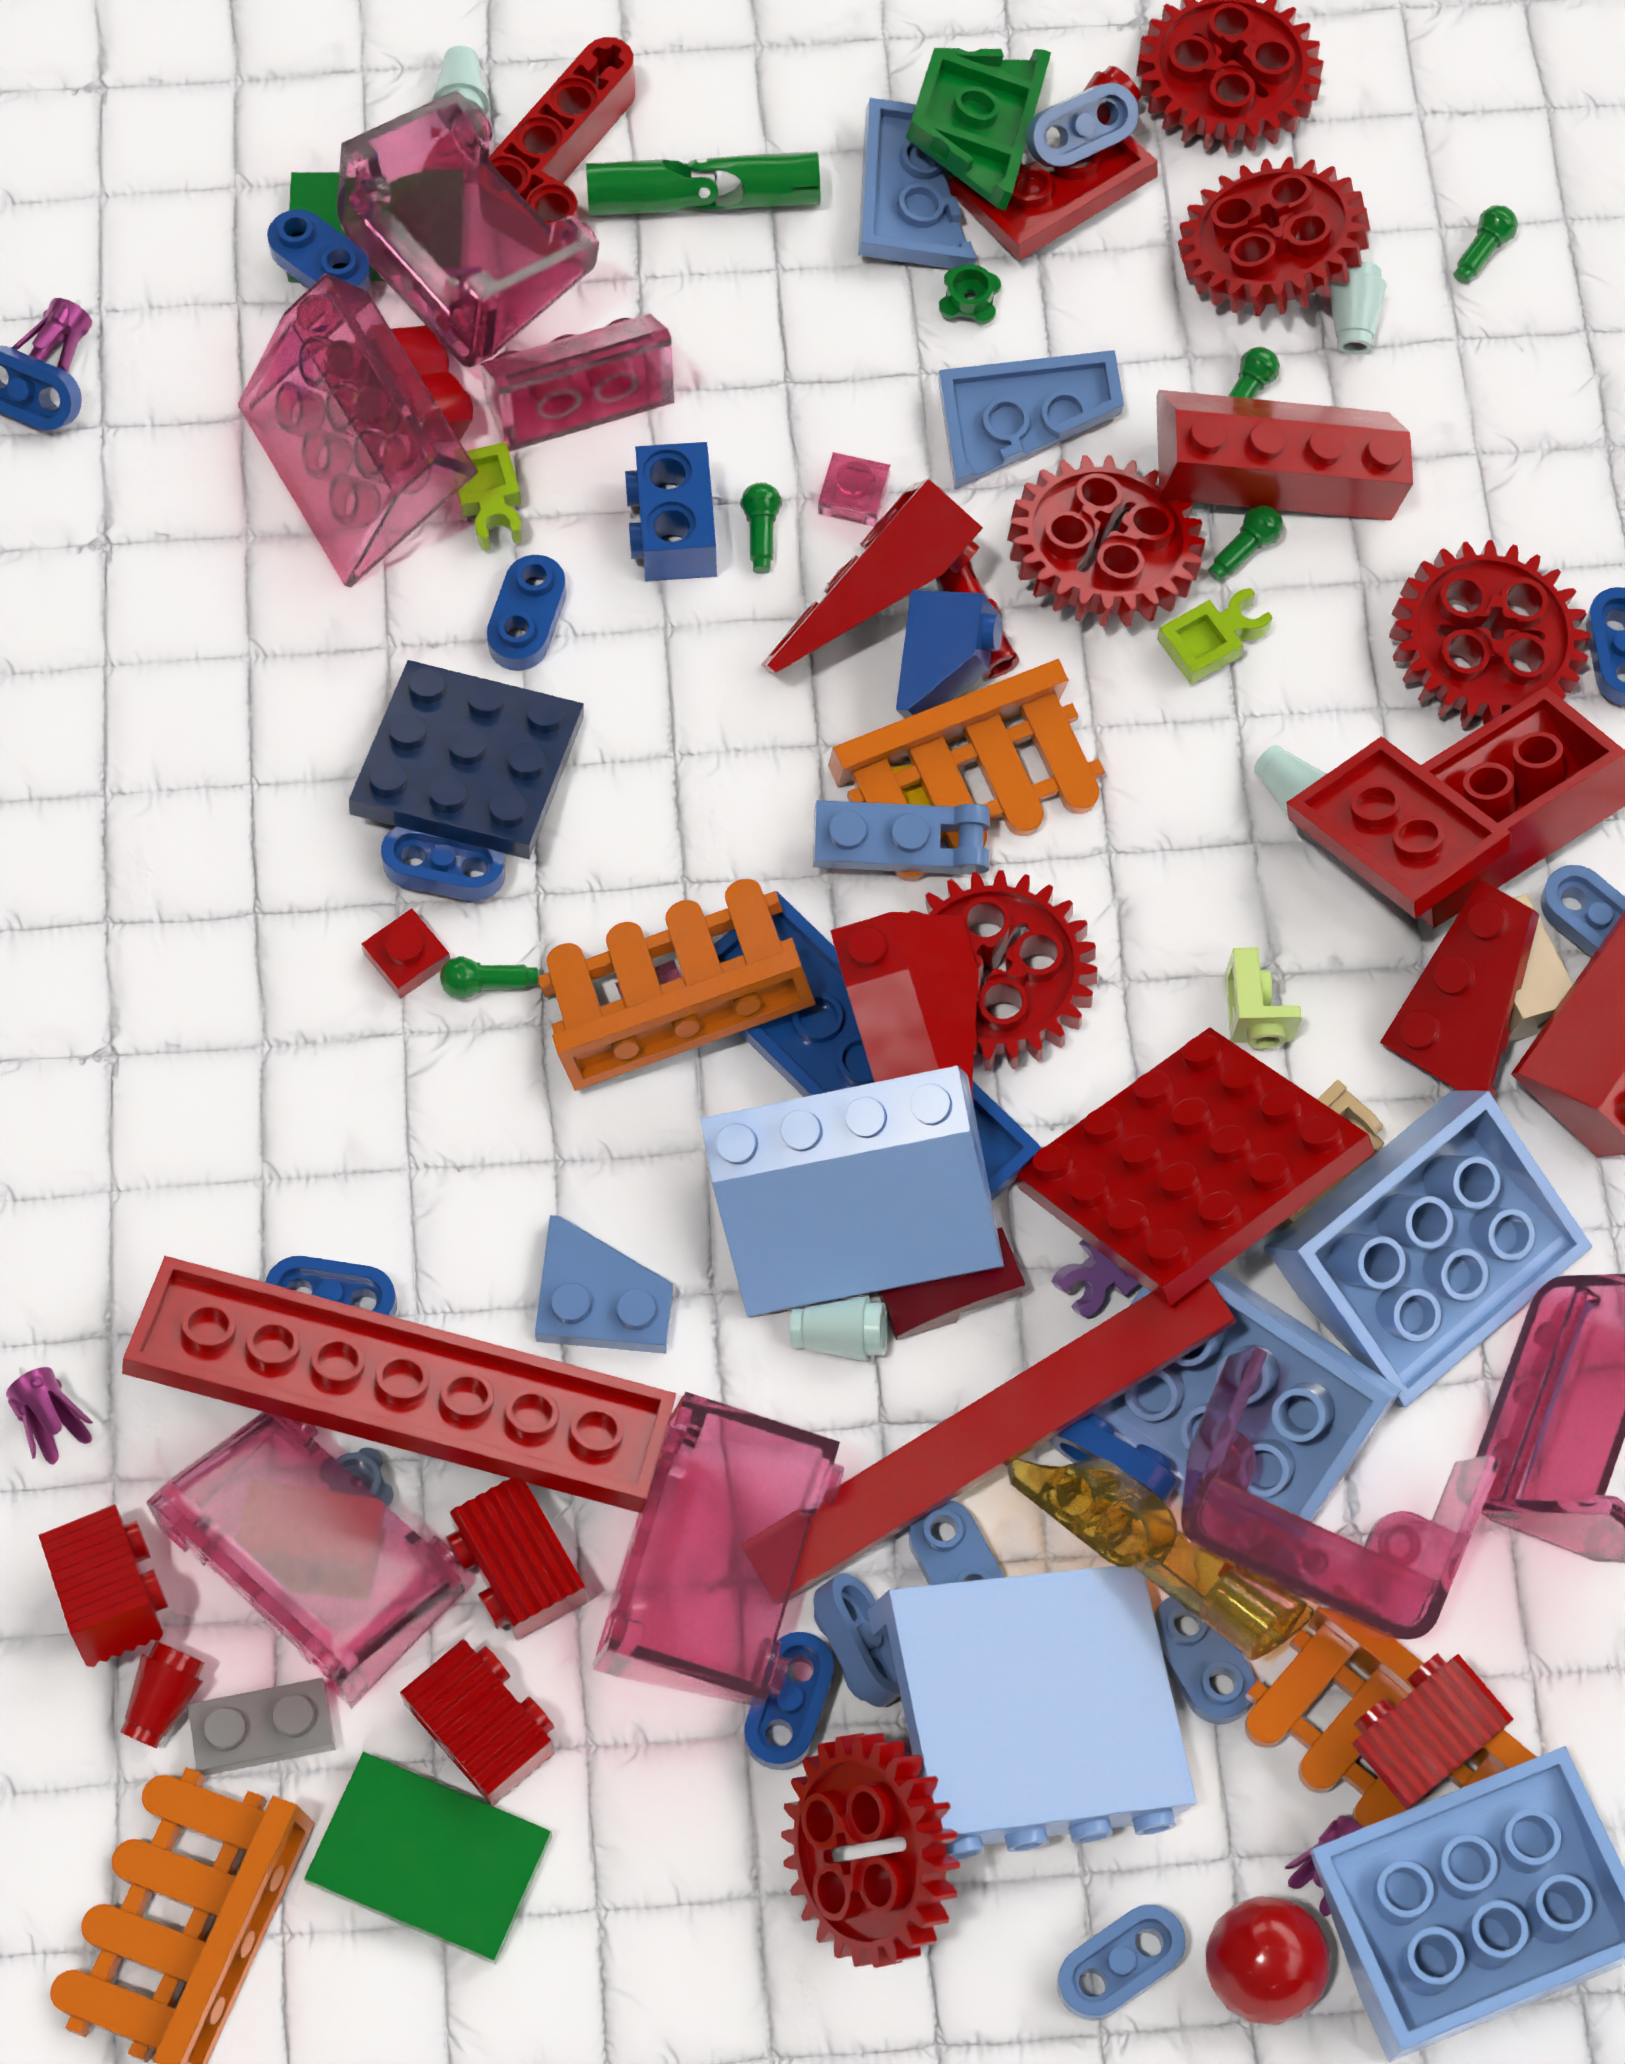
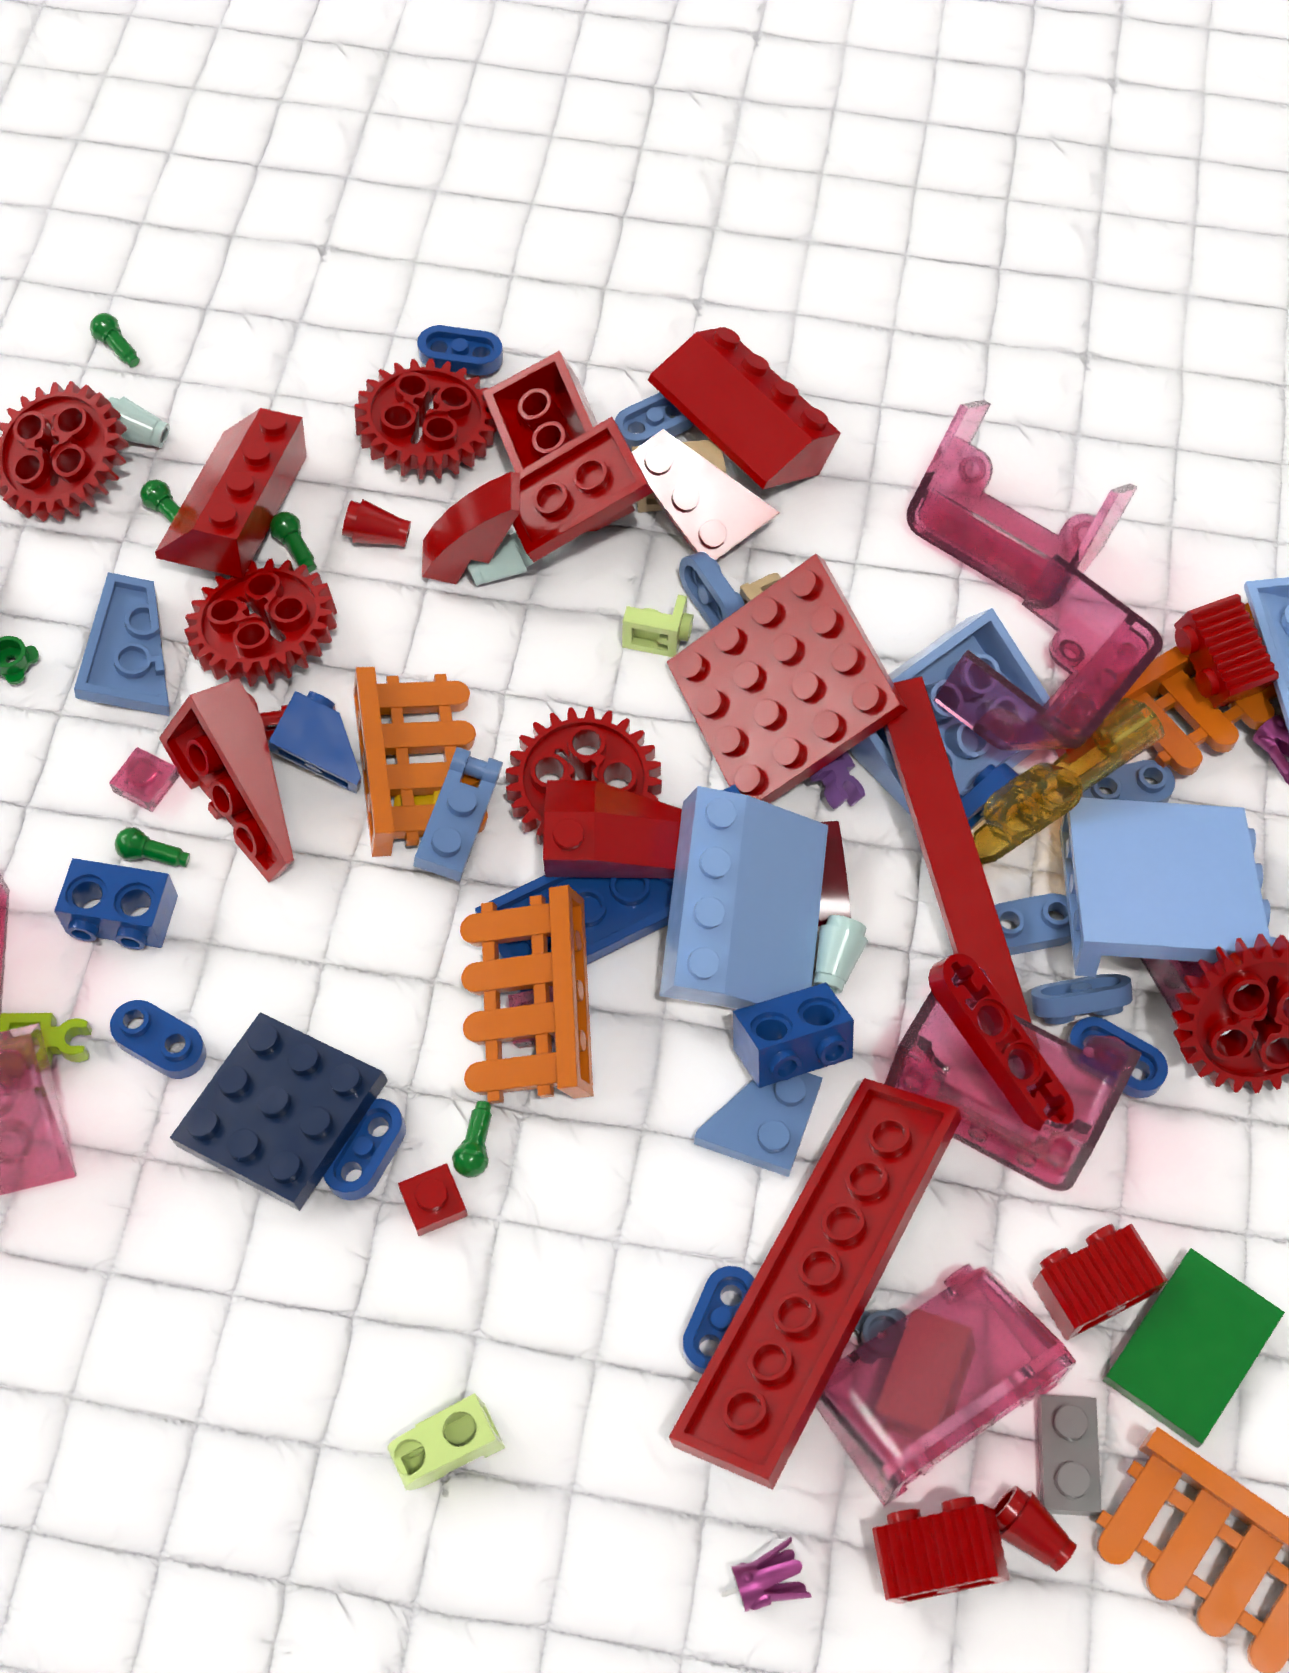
camera: 75 degrees left, 5 degrees down
(128, 1042) = (445, 1443): none -> yellowish green leg
(517, 1558) = (974, 1223): red brick -> none
(710, 1283) = (793, 1034): none -> blue brick
(744, 1532) = (1006, 1039): none -> red beam
(1210, 639) = (362, 580): lime plate -> none
(1298, 624) = (374, 525): none -> red cone
(1301, 726) = (471, 529): none -> red slope
(1352, 1038) = (708, 588): none -> medium blue plate
(1430, 1243) = (873, 562): light blue slope -> none

